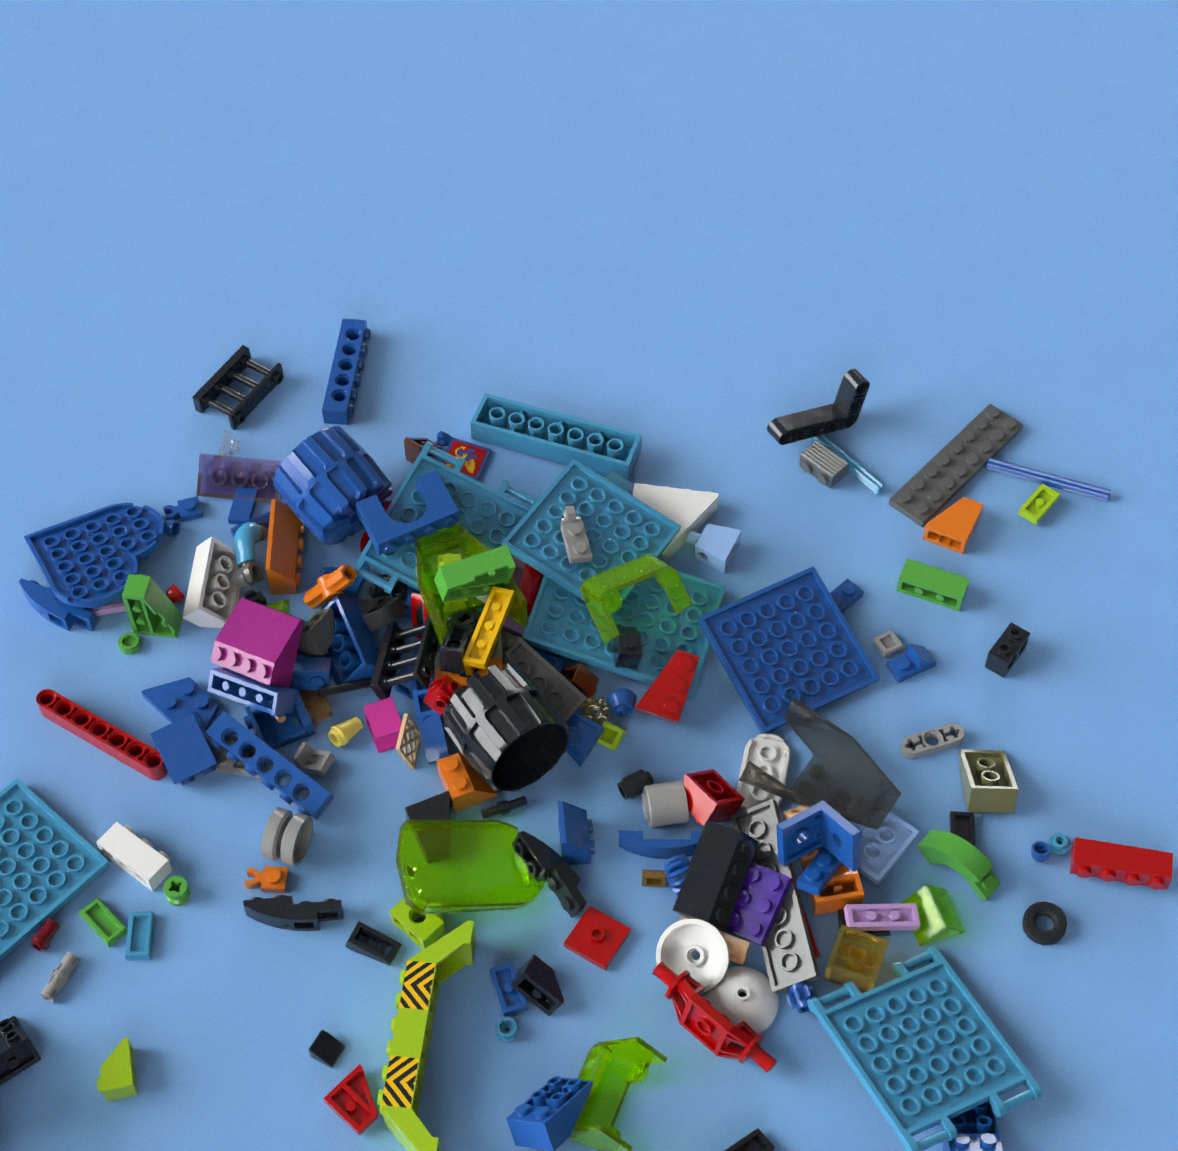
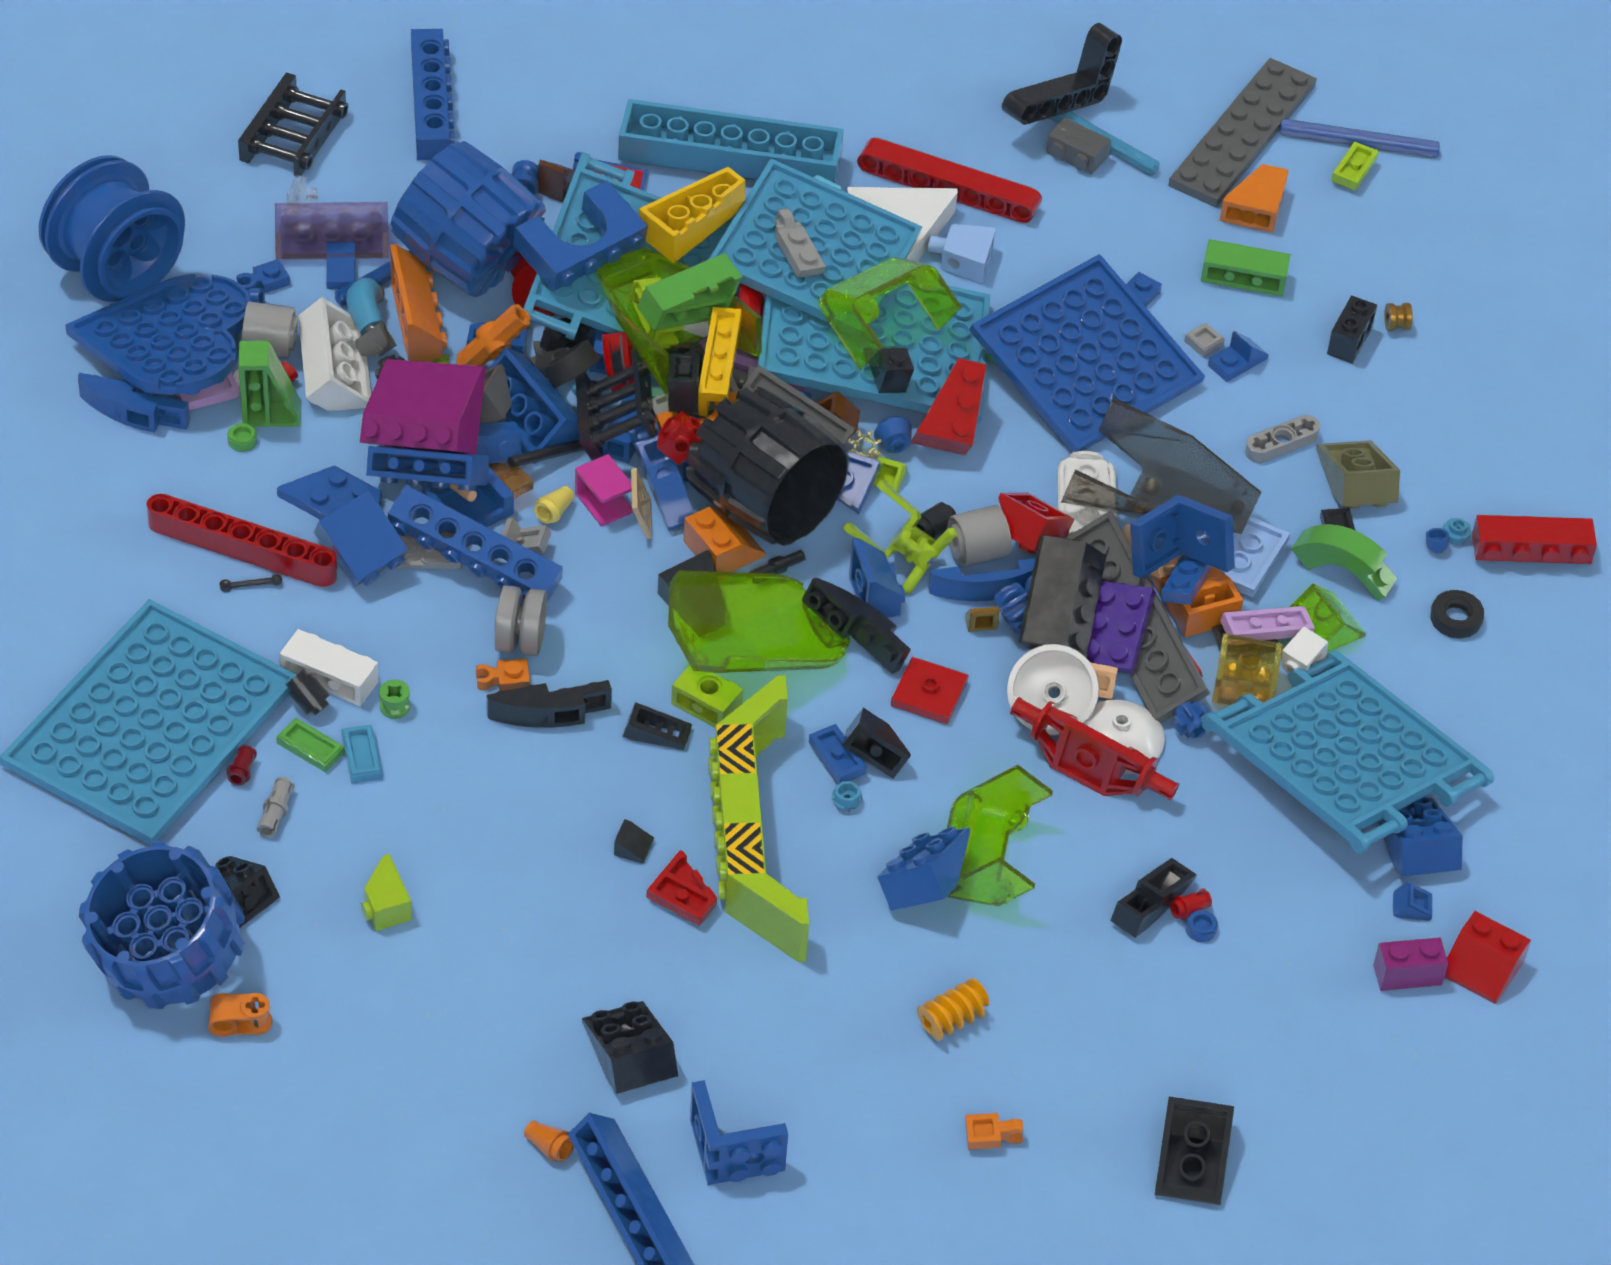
camera: 15 degrees left, 5 degrees down
(70, 464) = (112, 228): none -> blue wheel
(82, 771) = (227, 585): none -> black hinge
(110, 878) = (308, 692): none -> black brick
(170, 557) = (272, 324): none -> light grey piece
(395, 451) = (527, 174): none -> blue wheel
(499, 501) = (692, 213): none -> yellow wedge
(609, 801) = (909, 540): none -> lime piece
(712, 479) = (928, 171): none -> red beam
(907, 945) = (1303, 650): none -> white brick
(1047, 642) = (1398, 316): none -> pearl gold wheel

